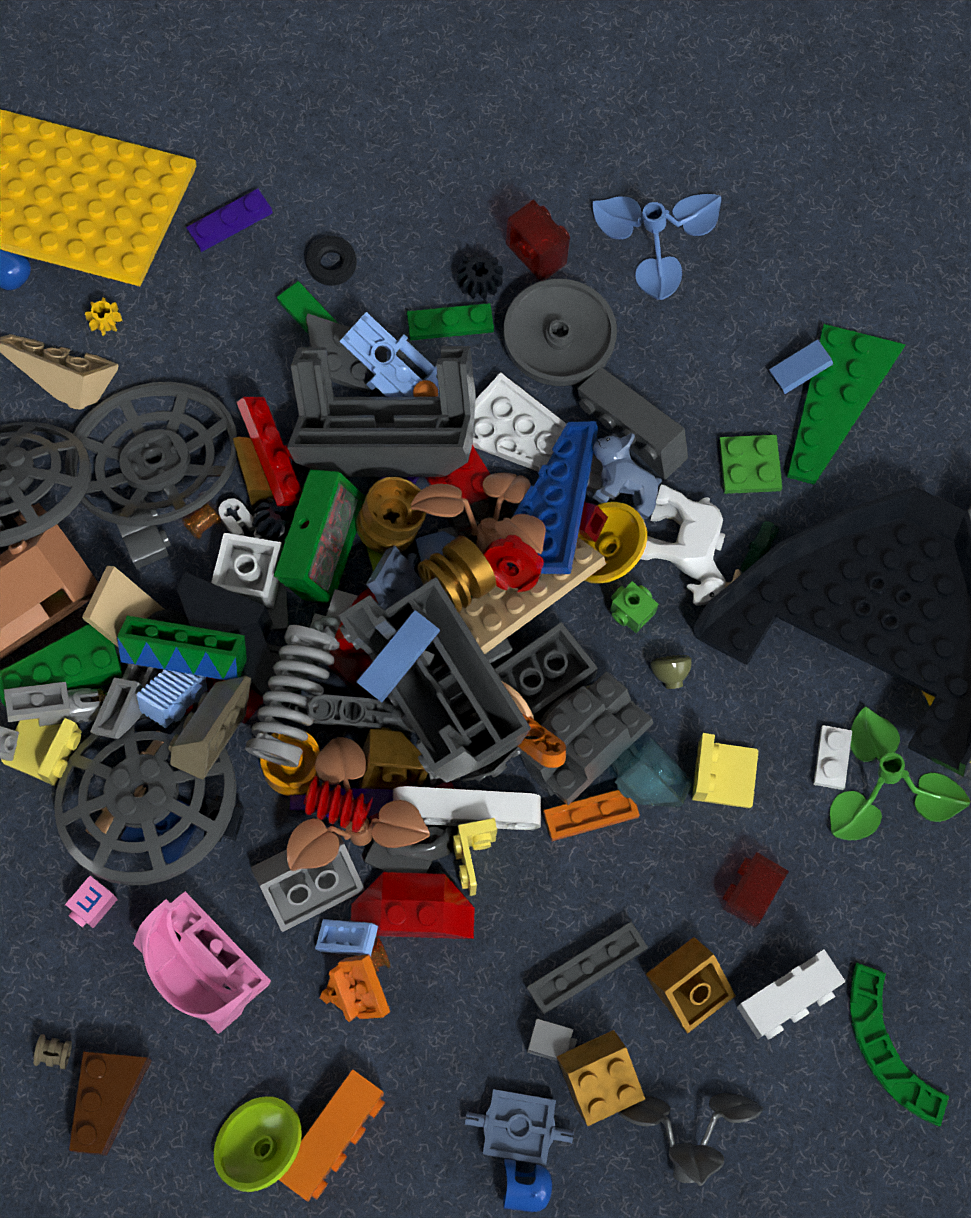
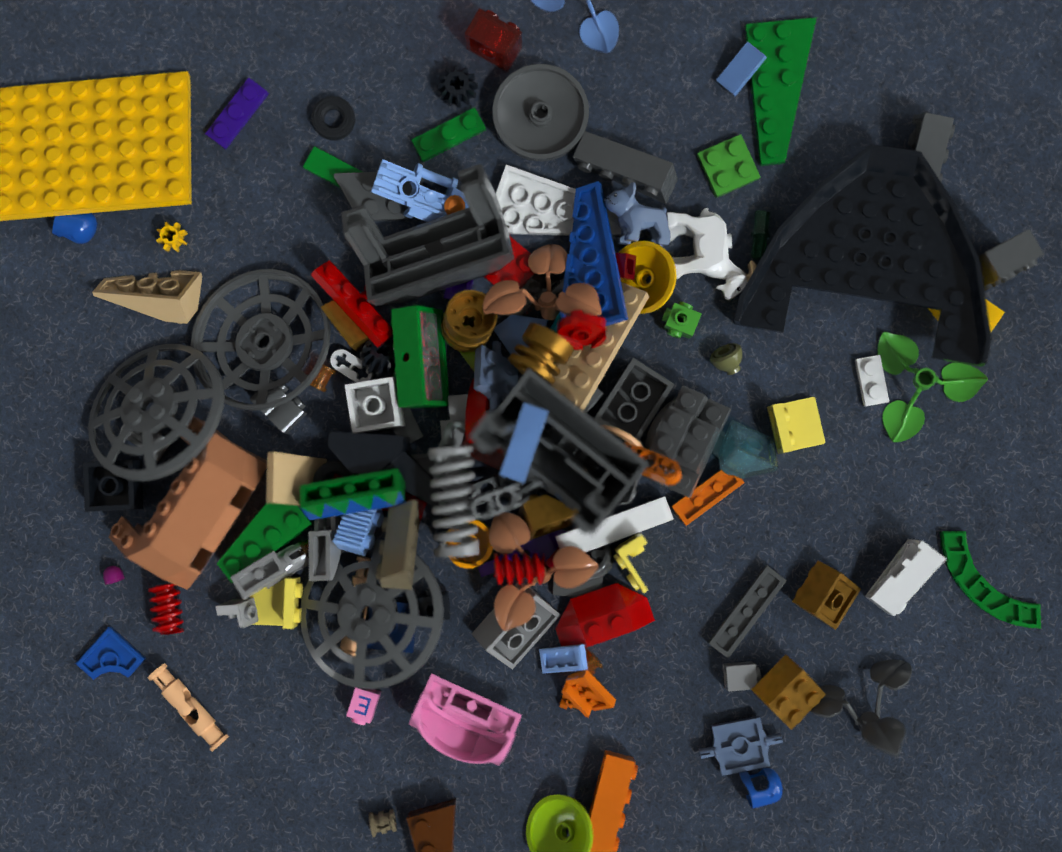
camera: 20 degrees left, 15 degrees up
(755, 889) = (849, 506): clear red brick -> none

